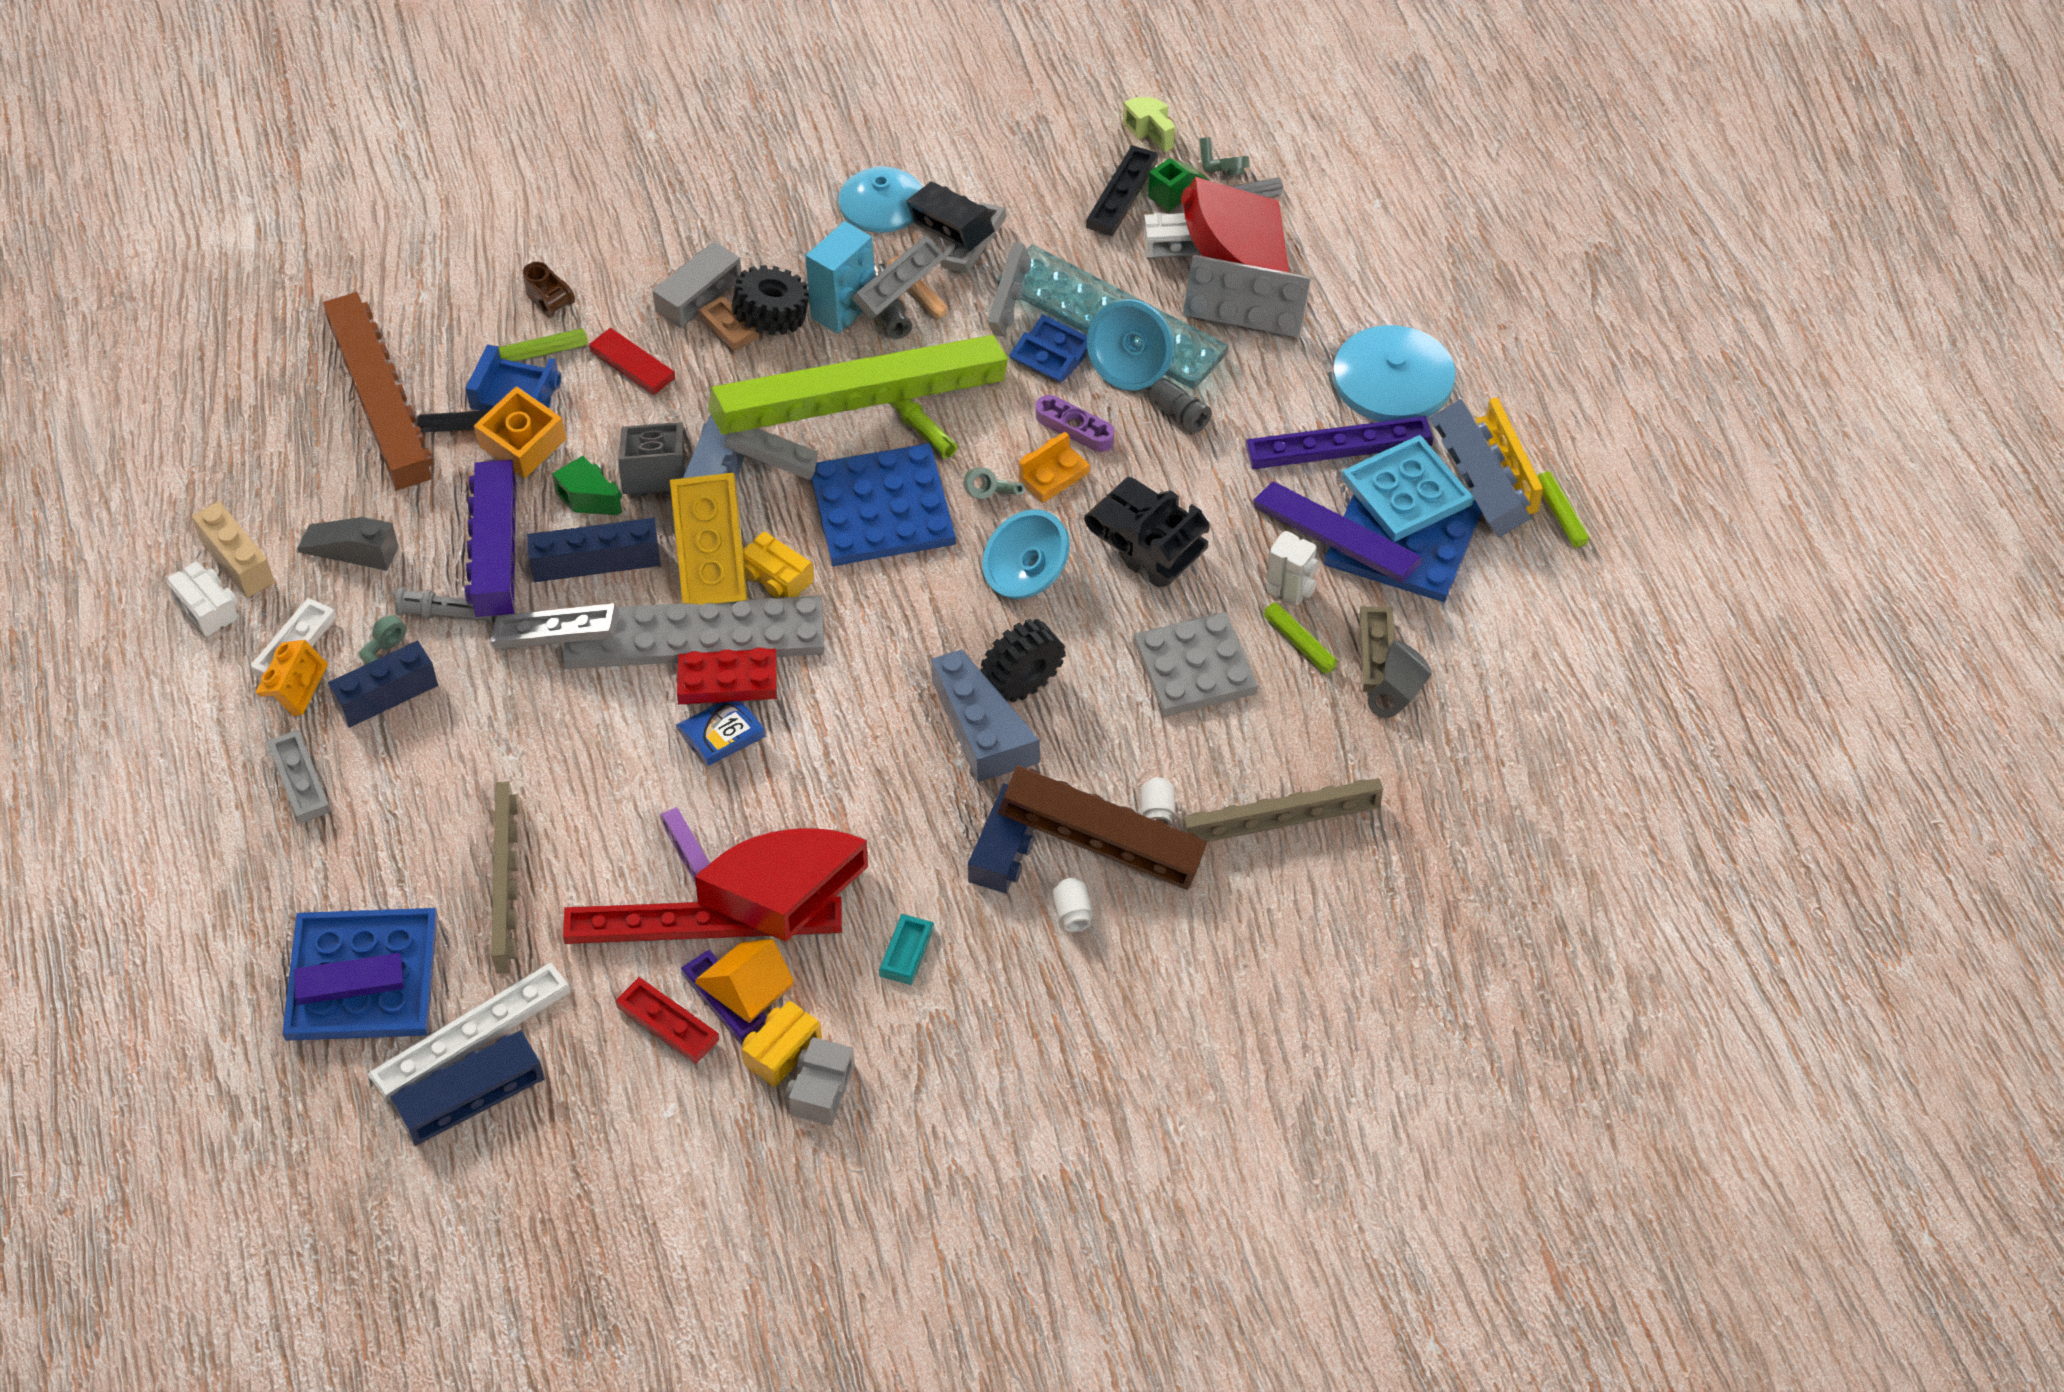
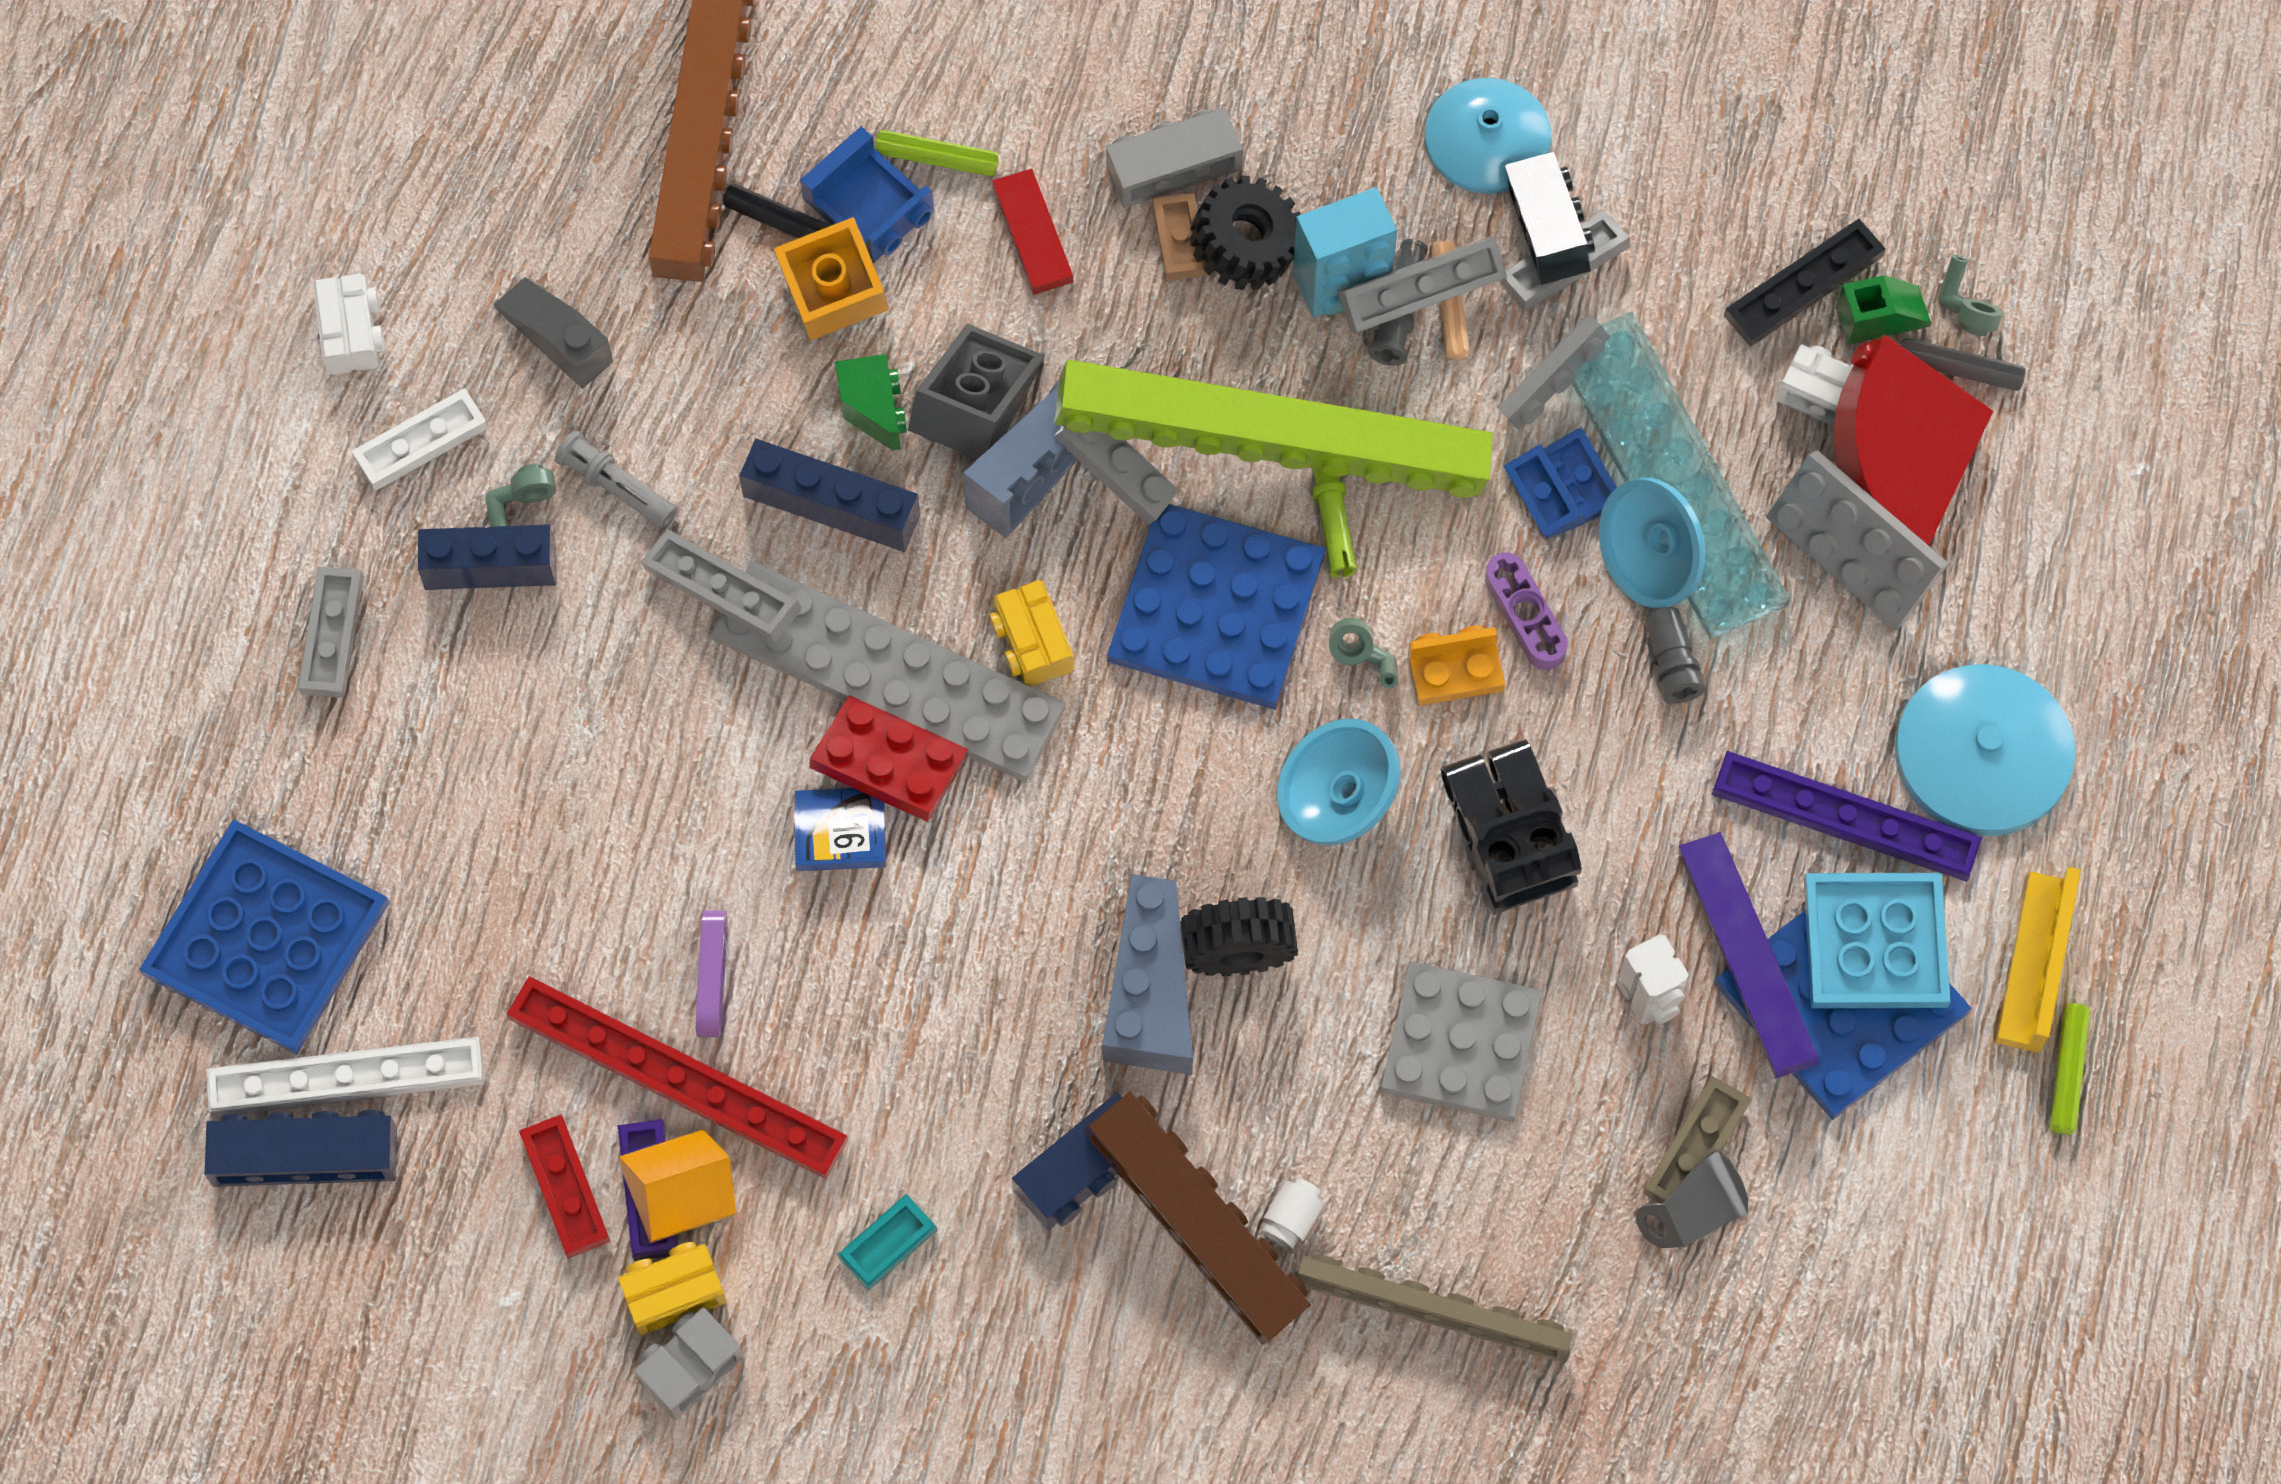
camera: 30 degrees right, 15 degrees up
(233, 549) = (414, 272): tan brick -> none
(293, 675) = (391, 491): light orange bracket -> none
(348, 978) = (242, 941): dark purple tile -> none
(492, 539) = (717, 418): dark purple brick -> none
(504, 888) = (478, 908): dark tan plate -> none
(546, 288) = (984, 75): reddish brown piece -> none
(709, 539) = (961, 563): yellow plate -> none
(781, 877) = (789, 1078): red brick -> none
(1073, 905) = (1109, 1294): white brick -> none
(1149, 118) = (1913, 185): yellowish green brick -> none
(1300, 638) = (1613, 1076): lime axle -> none
(1482, 467) = (1992, 963): sand blue wedge -> none

